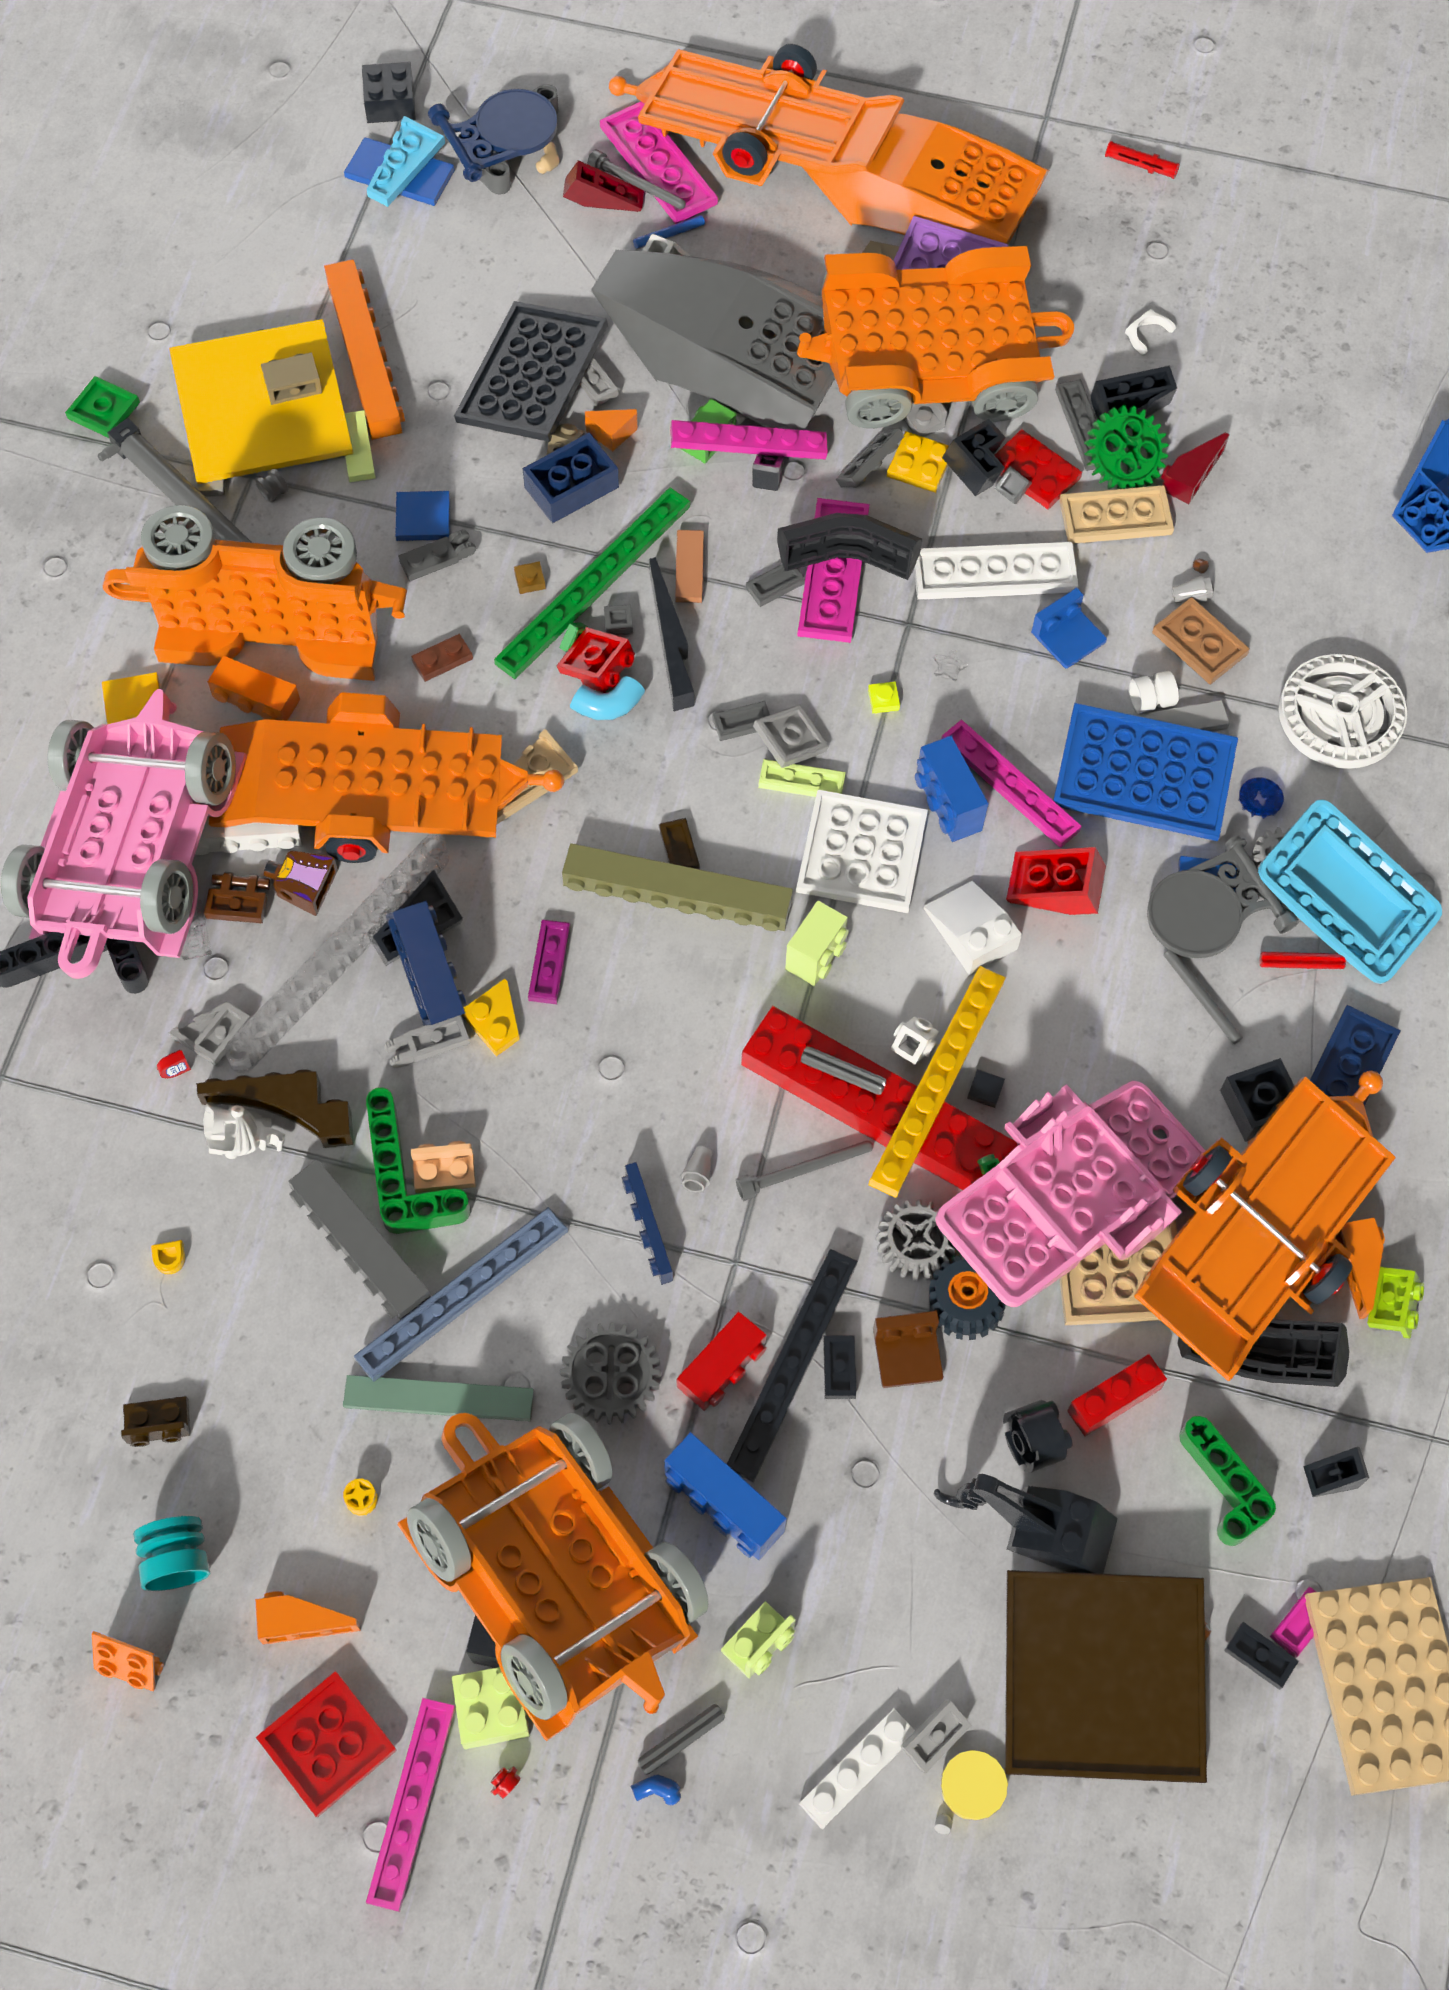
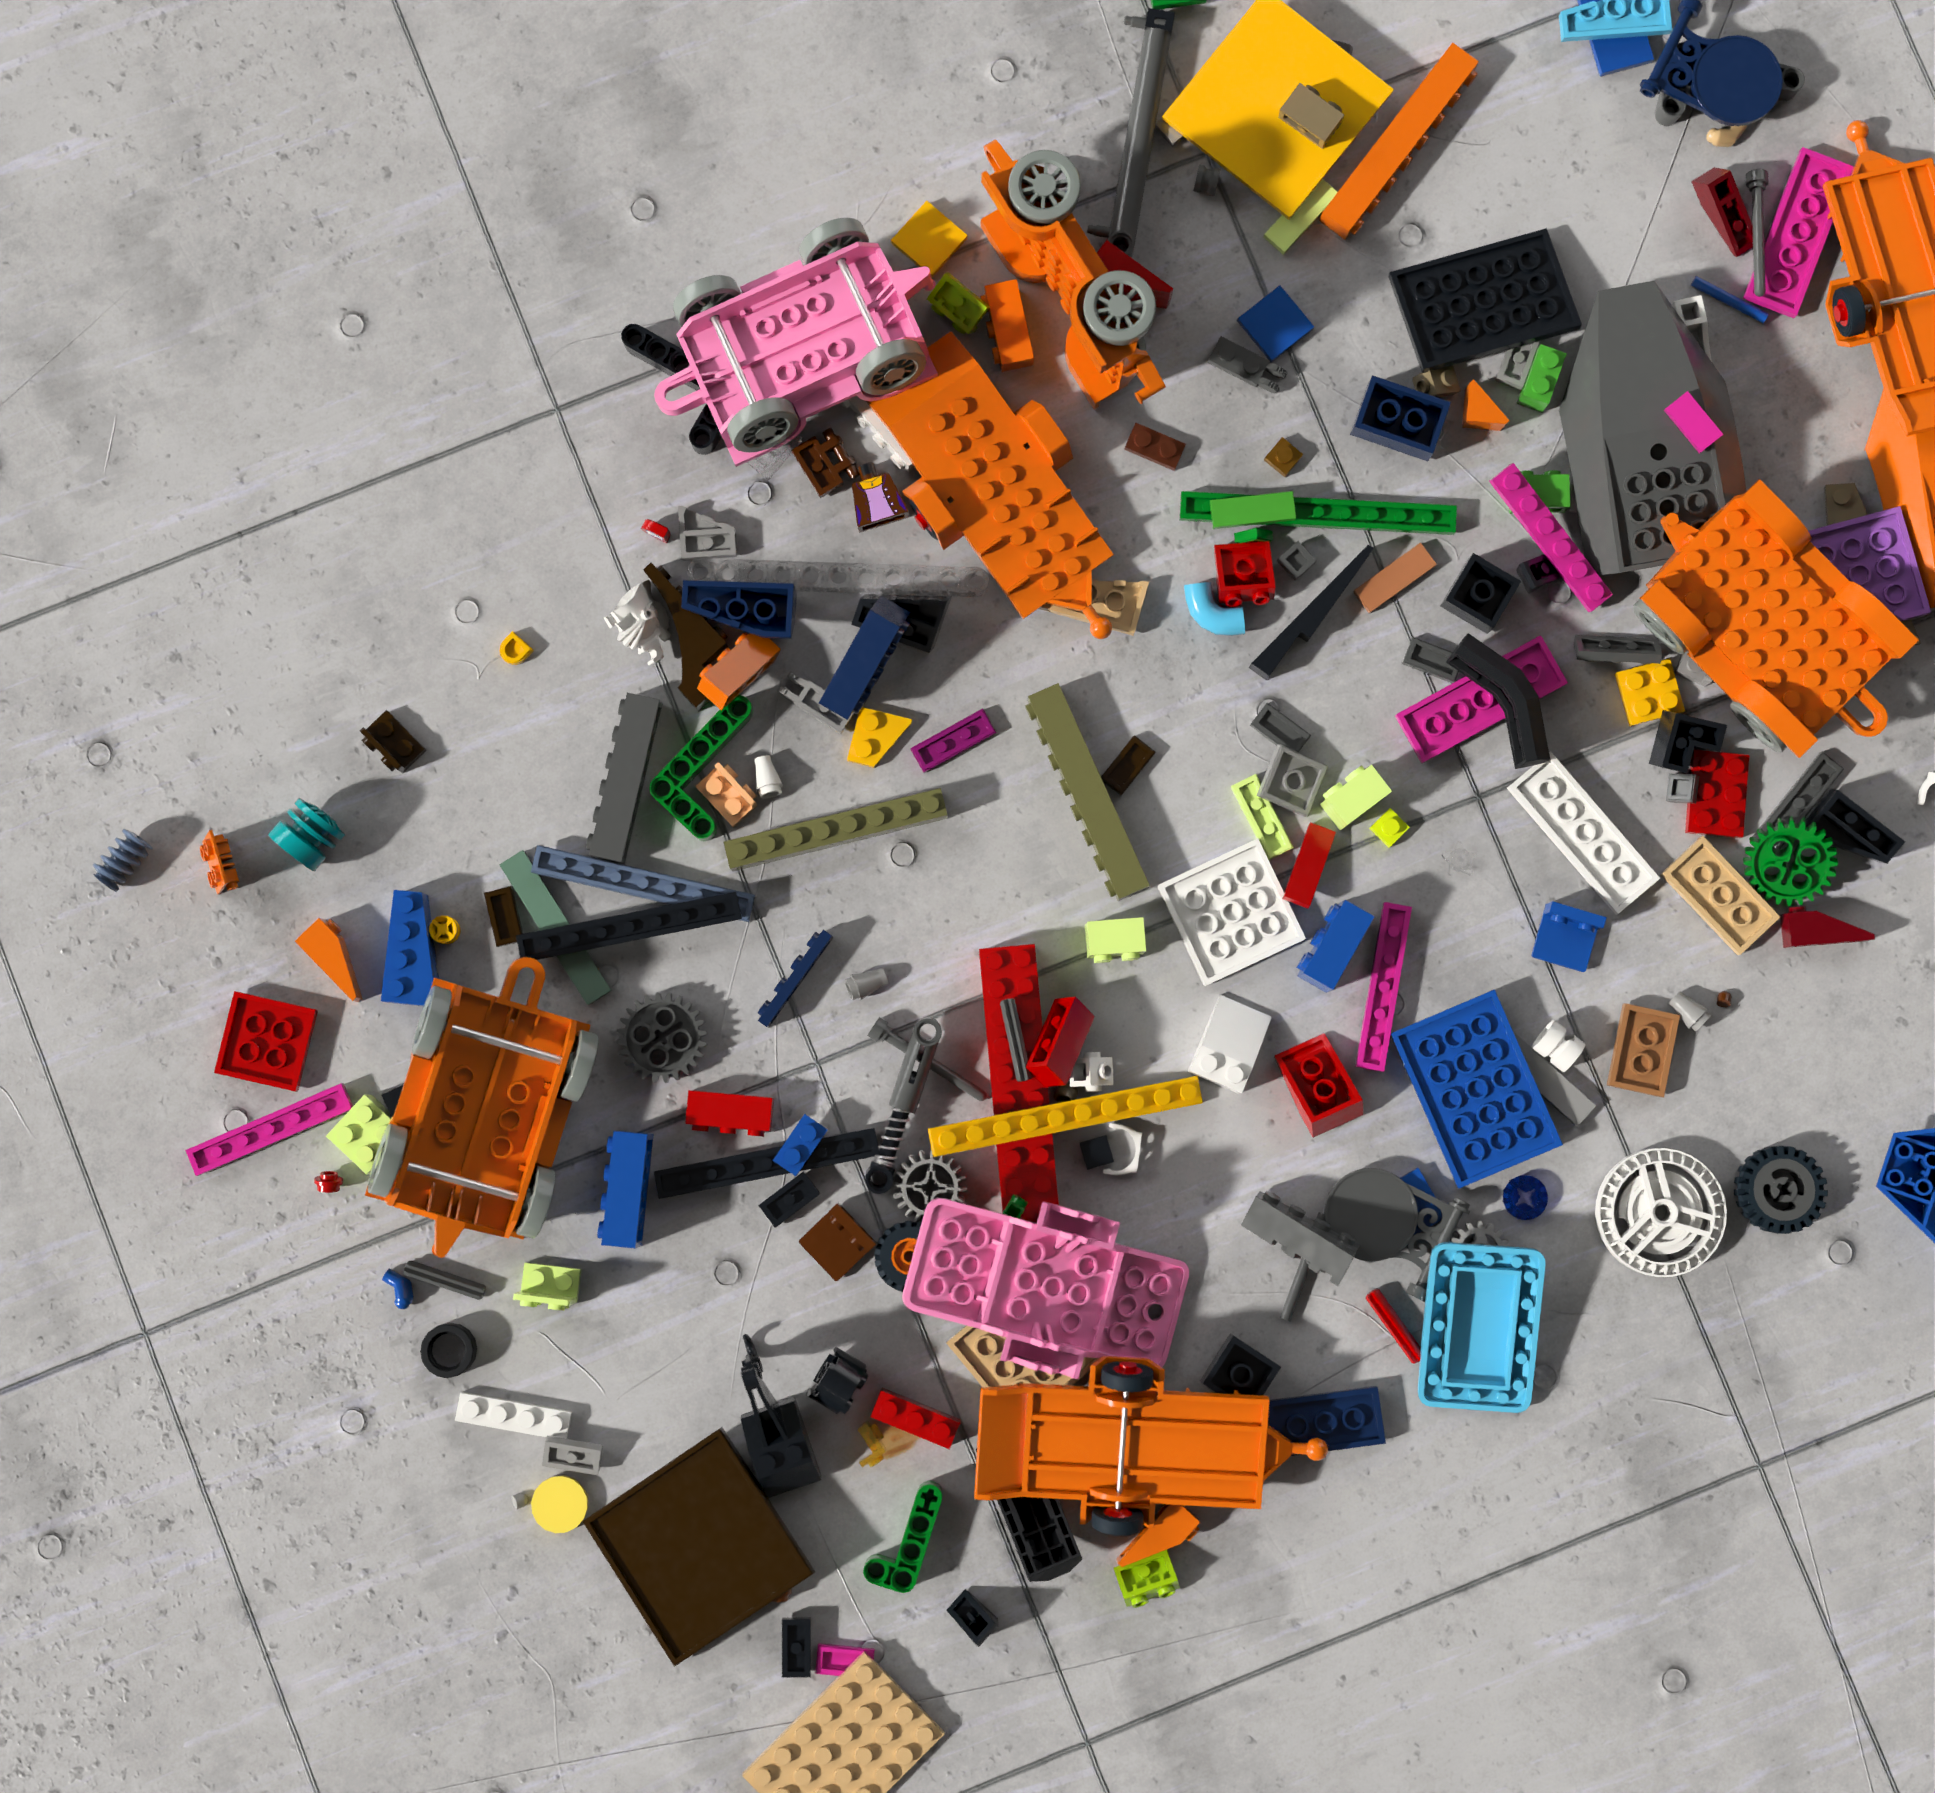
camera: 55 degrees right, 20 degrees up
(43, 1754) = (121, 859): none -> sand blue piece
(204, 709) = (958, 304): none -> lime bracket
(303, 1028) = (748, 606): none -> dark blue wedge
(345, 1075) = (737, 668): none -> orange brick
(363, 1545) = (410, 951): none -> blue wedge
(392, 1437) = (503, 916): none -> dark brown tile
(459, 1126) = (767, 779): none -> white cone
(491, 1325) = (629, 926): none -> black plate
(546, 1101) = (835, 830): none -> olive brick
(552, 618) = (1252, 510): none -> bright green tile
(623, 372) = (1541, 378): none -> bright green brick
(739, 1807) = (427, 1346): none -> black tyre
(744, 282) = (1693, 422): none -> dark pink tile
(751, 512) = (1480, 593): none -> black brick
(798, 1319) = (800, 1145): none -> blue plate
(826, 1205) = (905, 1101): none -> piece
(840, 696) = (1359, 794): none -> yellowish green brick
(869, 769) = (1309, 865): none -> red tile
(871, 1040) = (1060, 1041): none -> red brick
(915, 1074) = (1065, 1093): none -> dark tan hinge
(1000, 1049) = (1137, 1137): none -> white cap
(1108, 1446) = (872, 1436): none -> clear yellow bracket
(1178, 970) = (1301, 1236): none -> dark grey wedge
(1390, 609) = (1804, 1198): none -> wheel

